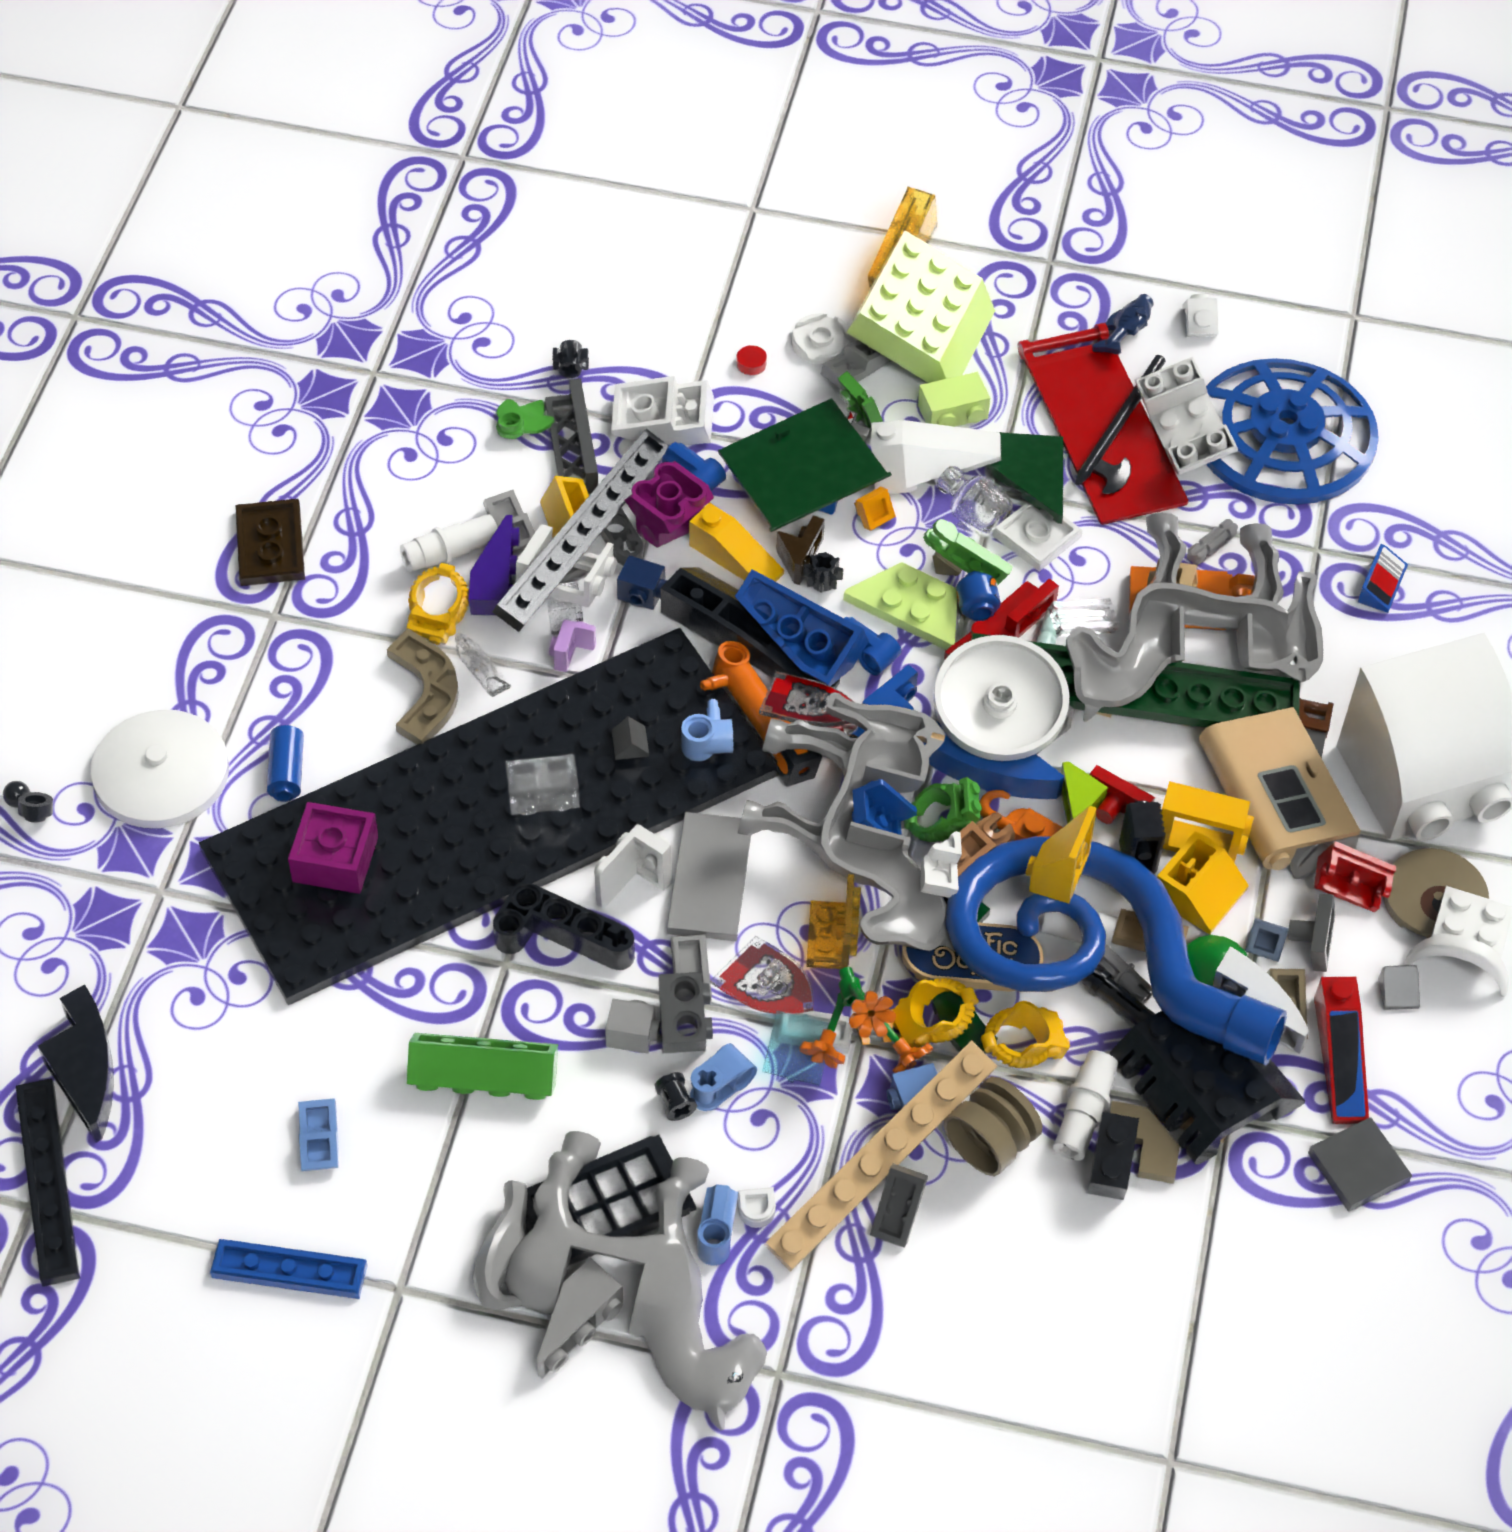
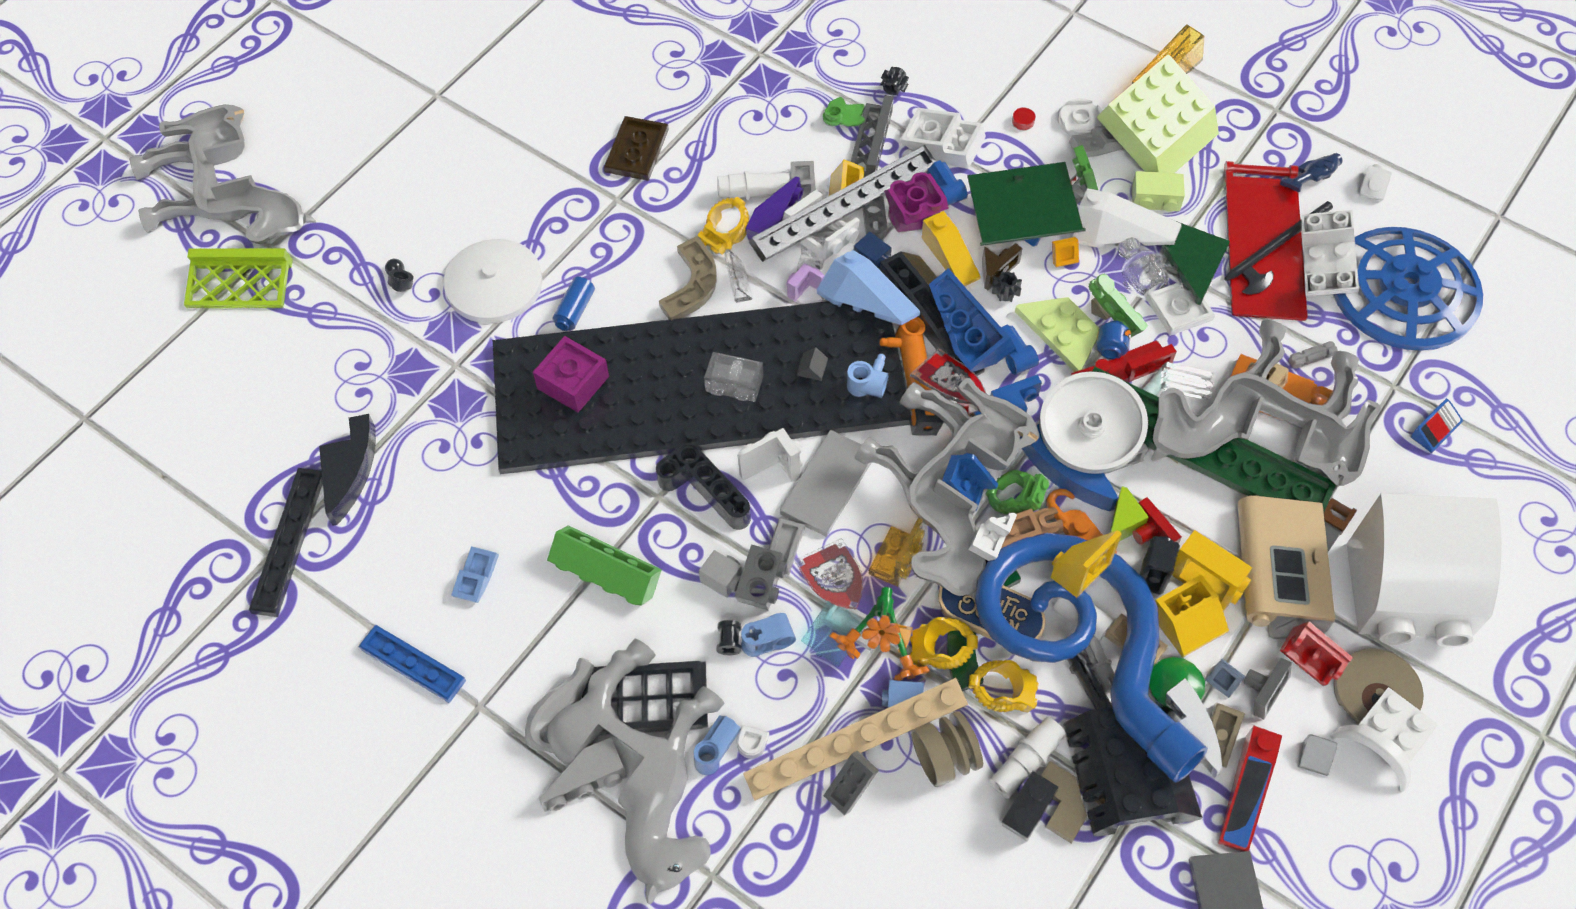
camera: 25 degrees right, 5 degrees up
(646, 623) = (861, 284): none -> light blue wedge

